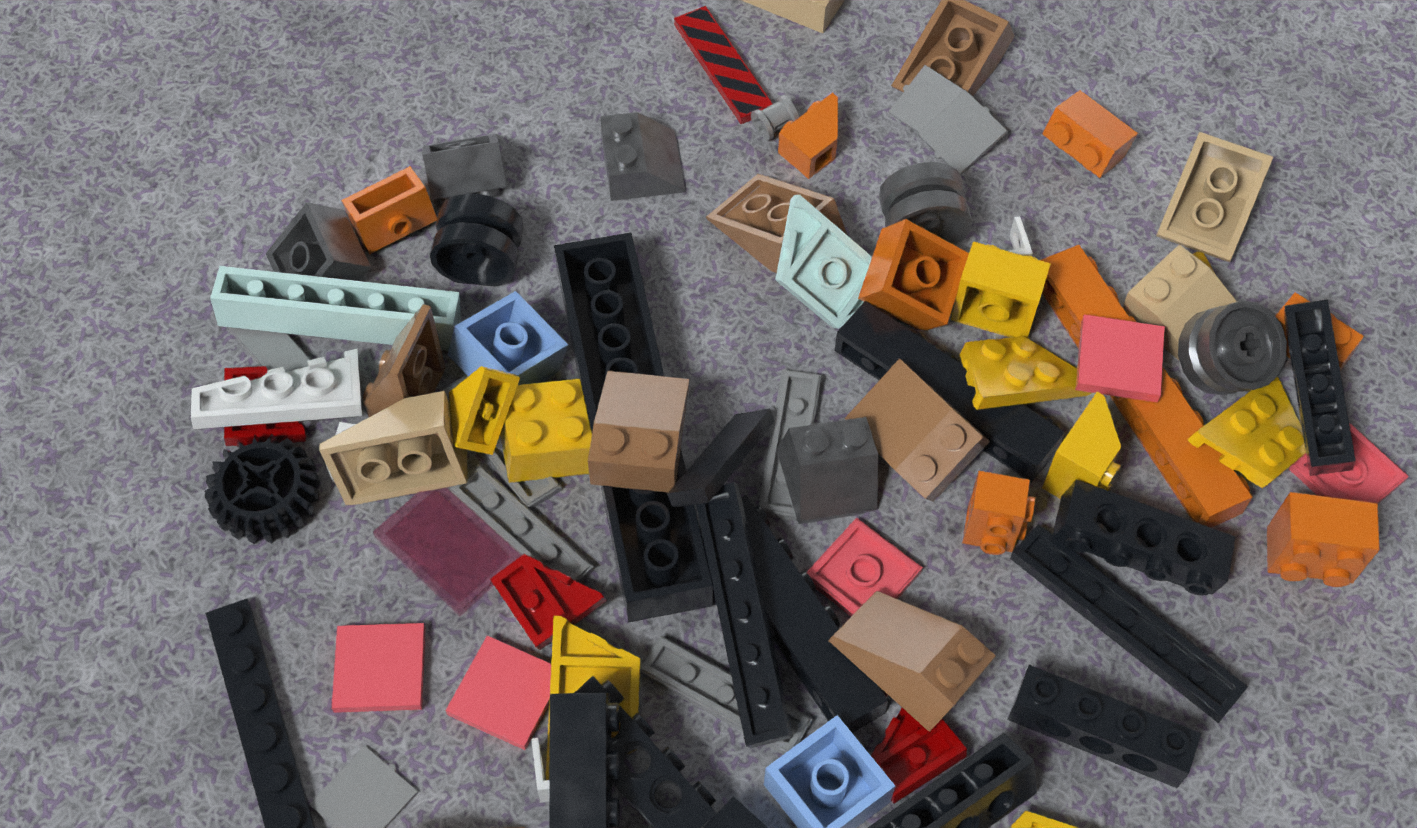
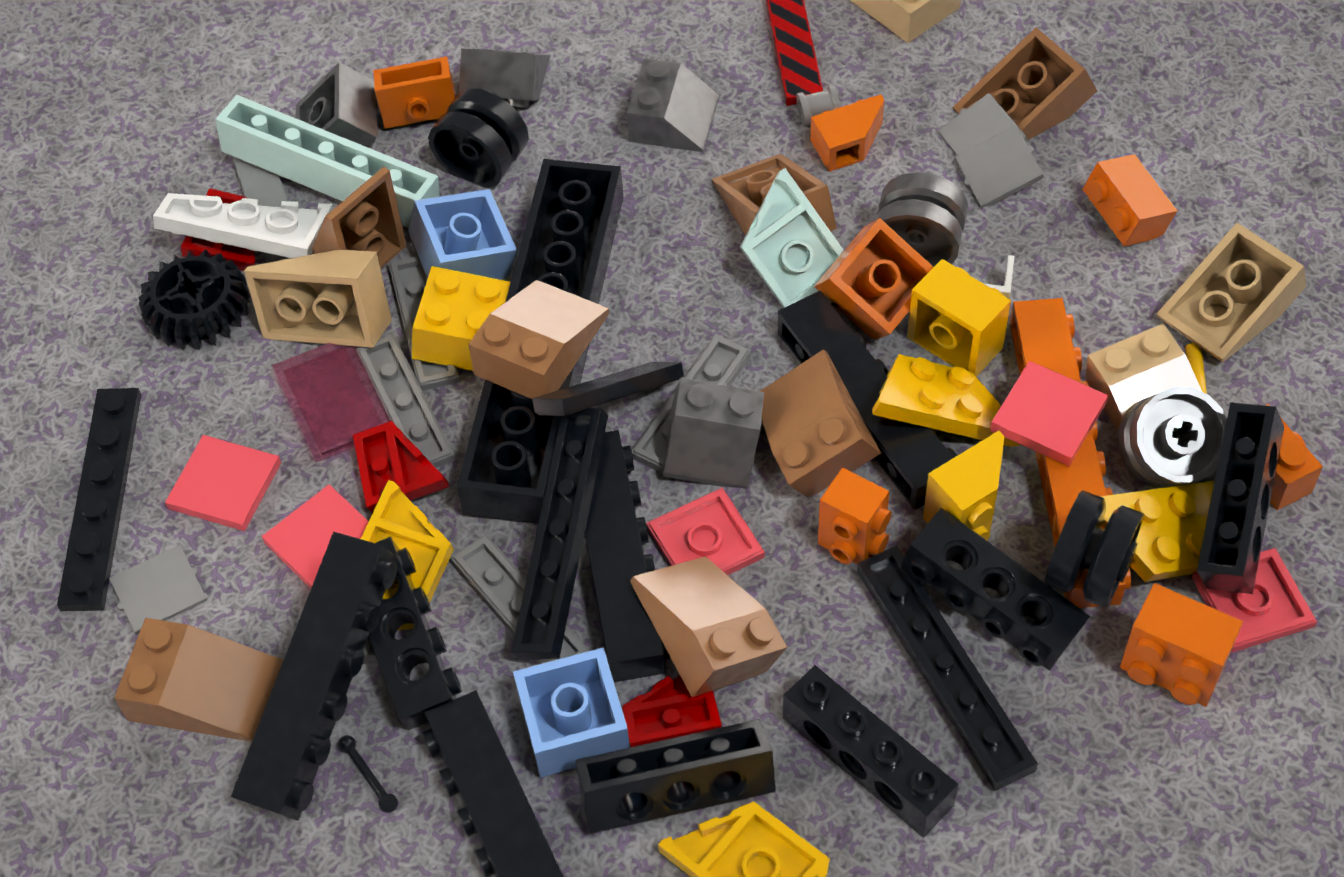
camera: 25 degrees right, 5 degrees down
(480, 408) = (404, 278): yellow slope -> none
(1229, 477) = (1101, 551): none -> black wheel

